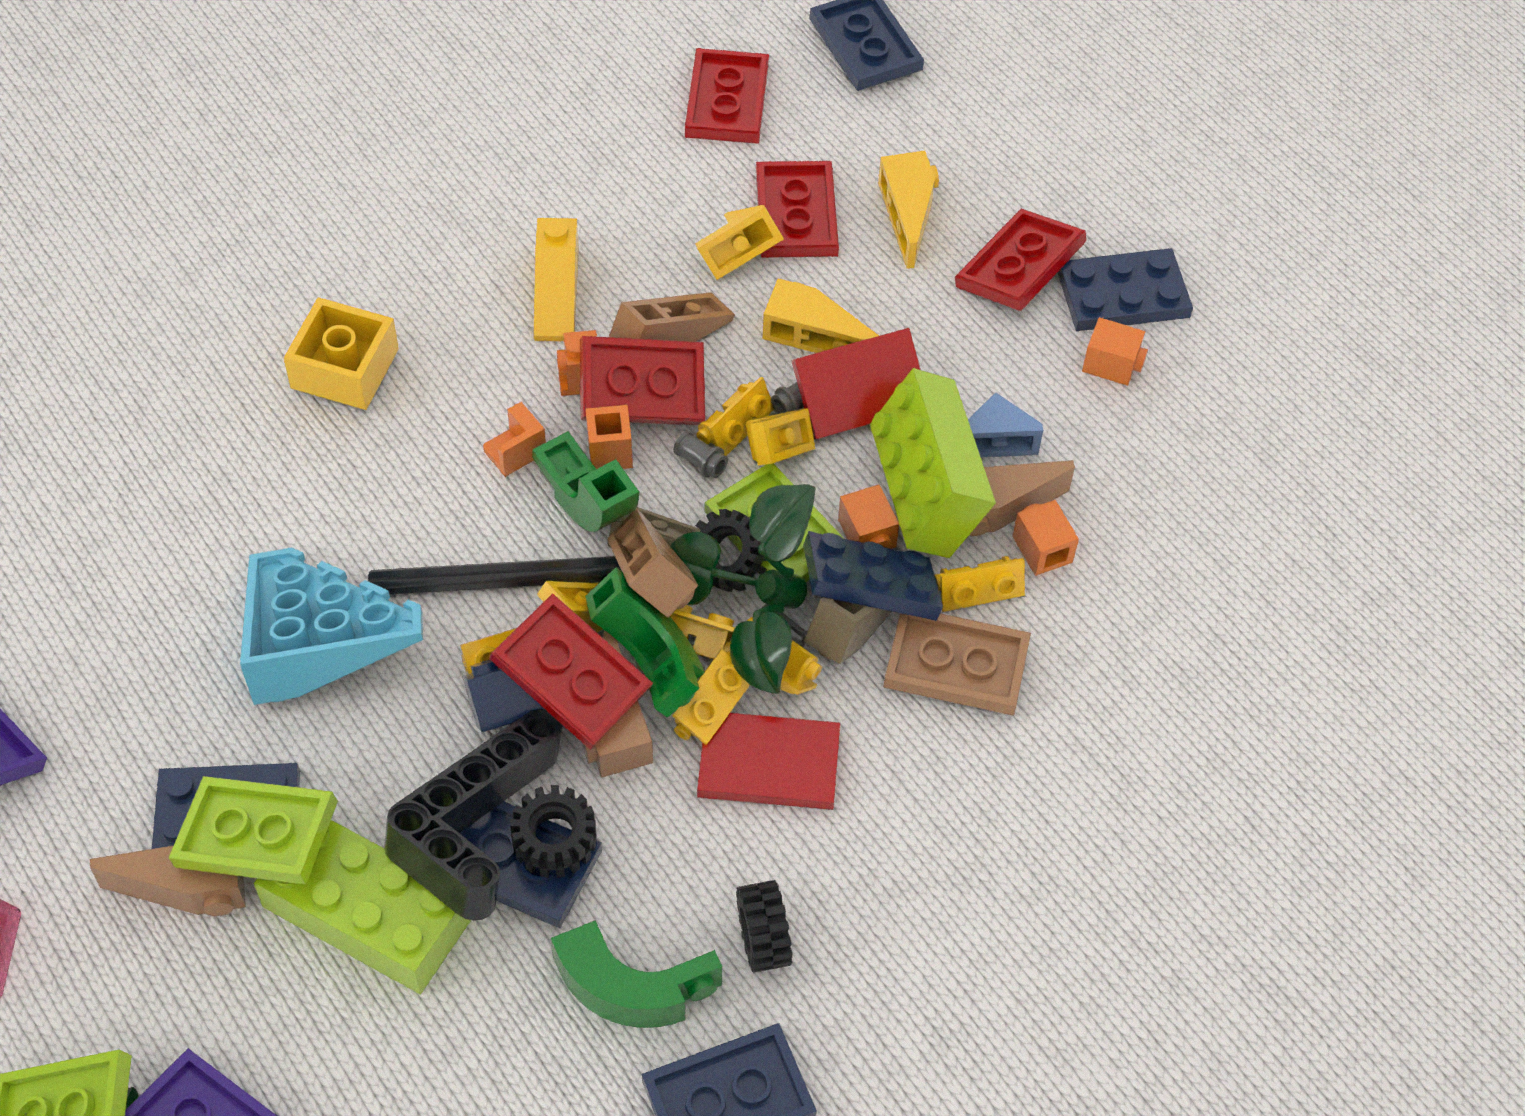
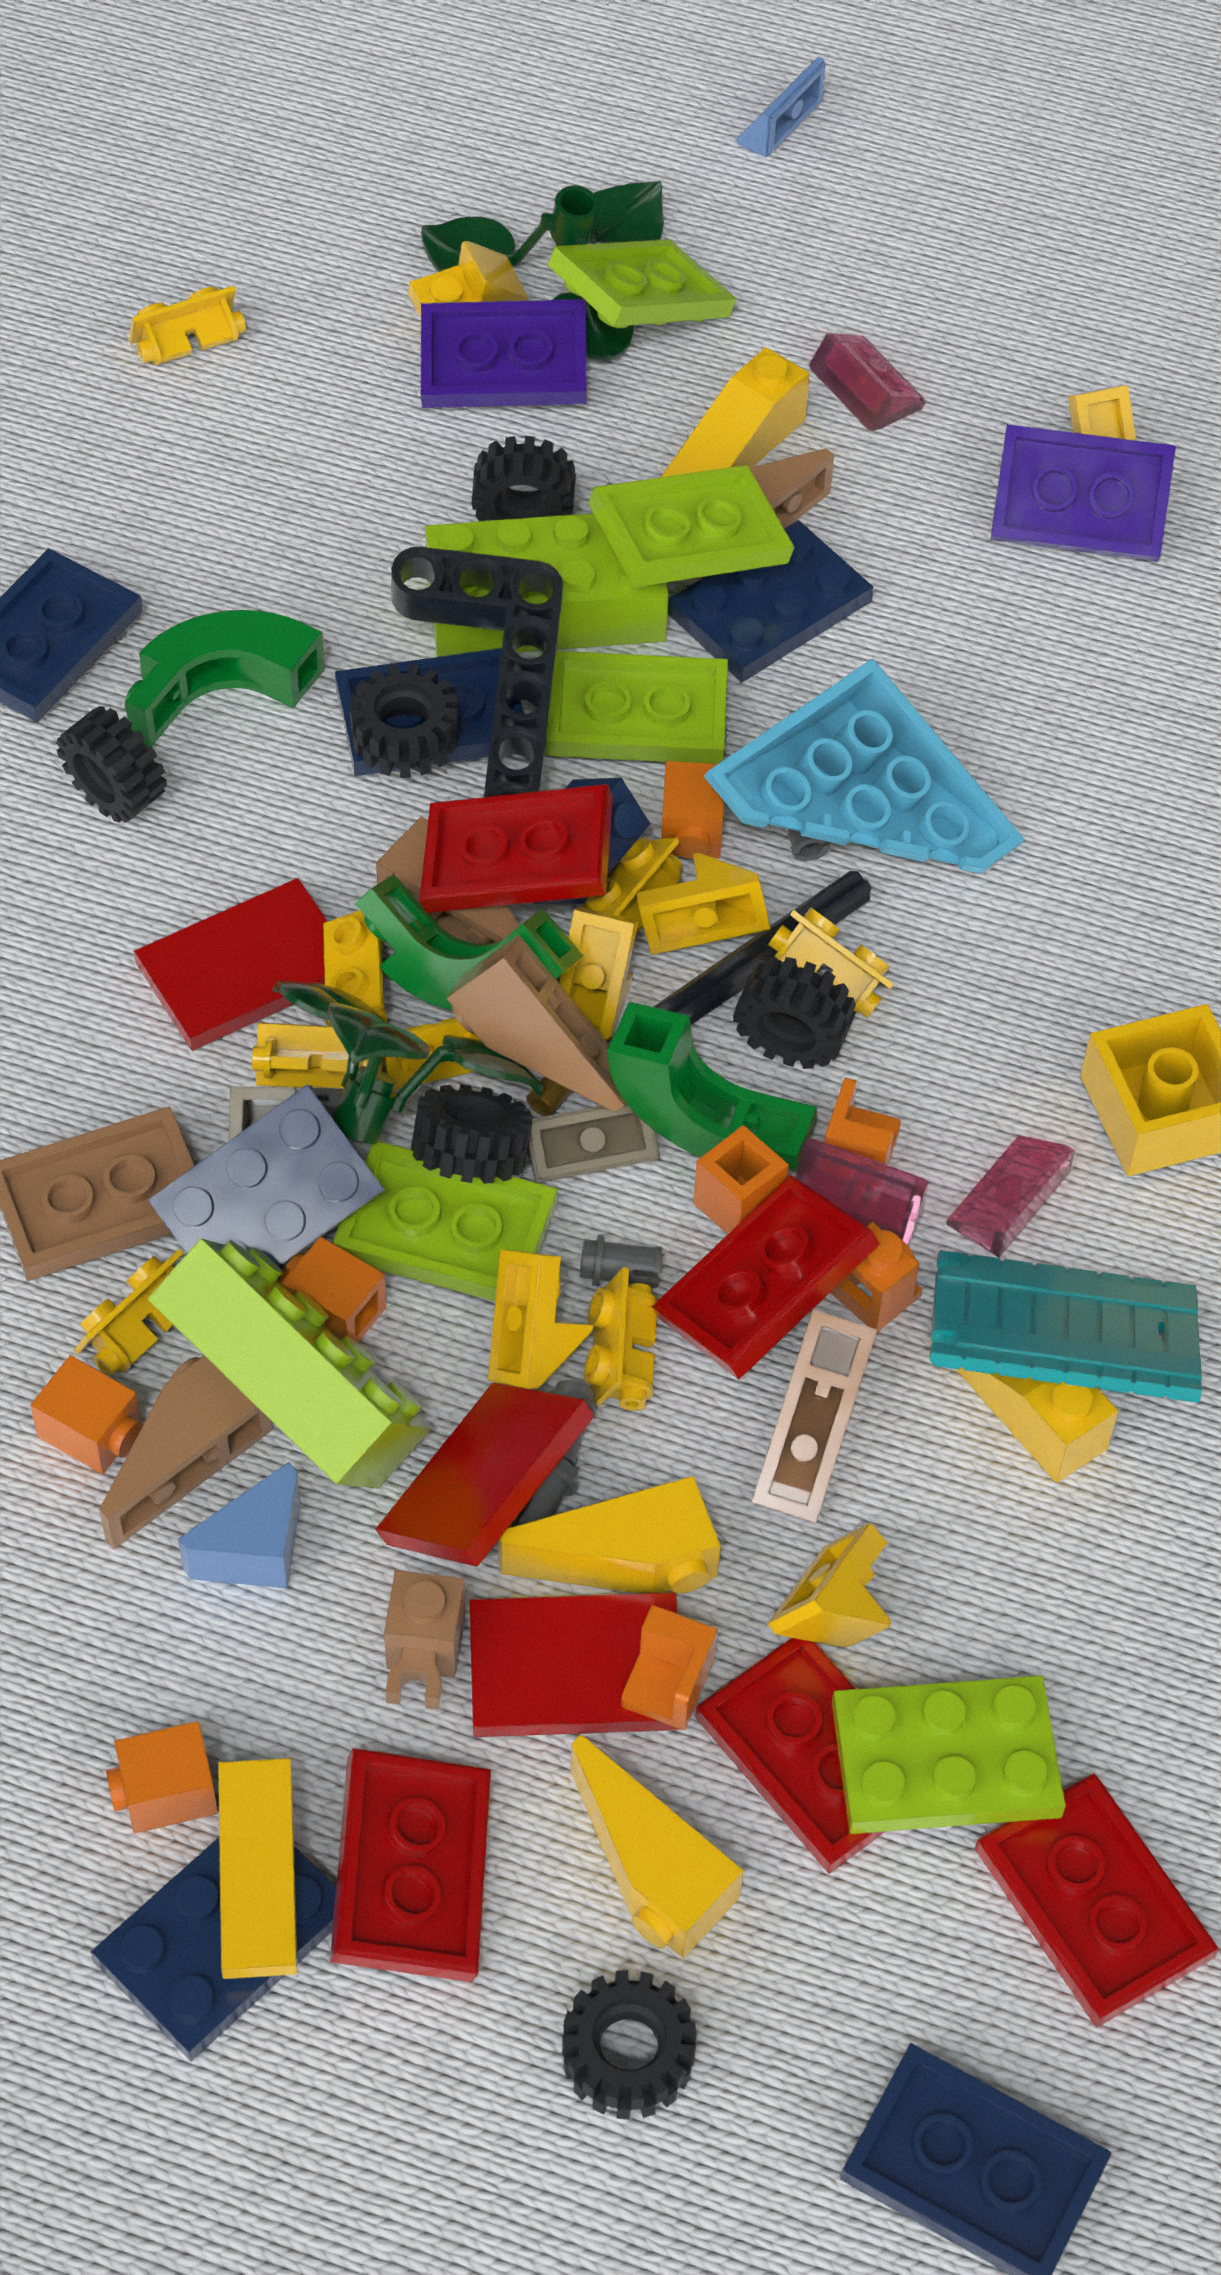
camera: 145 degrees right, 0 degrees up
(116, 950) = (747, 417): none -> yellow slope
(314, 976) = (526, 466): none -> black tyre
(374, 765) = (637, 707): none -> lime plate
(424, 679) = (691, 810): none -> orange brick
(436, 535) = (815, 943): none -> yellow hinge
(464, 371) = (1012, 1192): none -> clear pink slope
(471, 600) = (715, 907): none -> yellow slope
(494, 505) = (794, 1013): none -> black tyre
(515, 277) = (1066, 1326): none -> teal door
(542, 407) = (864, 1187): none -> clear pink slope
(745, 160) = (947, 1754): none -> lime plate
(840, 250) = (670, 1667): none -> orange panel
(882, 294) = (557, 1663): none -> red tile
(945, 337) = (423, 1632): none -> medium nougat brick
(977, 133) = (622, 2087): none -> black tyre
(1097, 281) = (257, 1869): none -> yellow tile

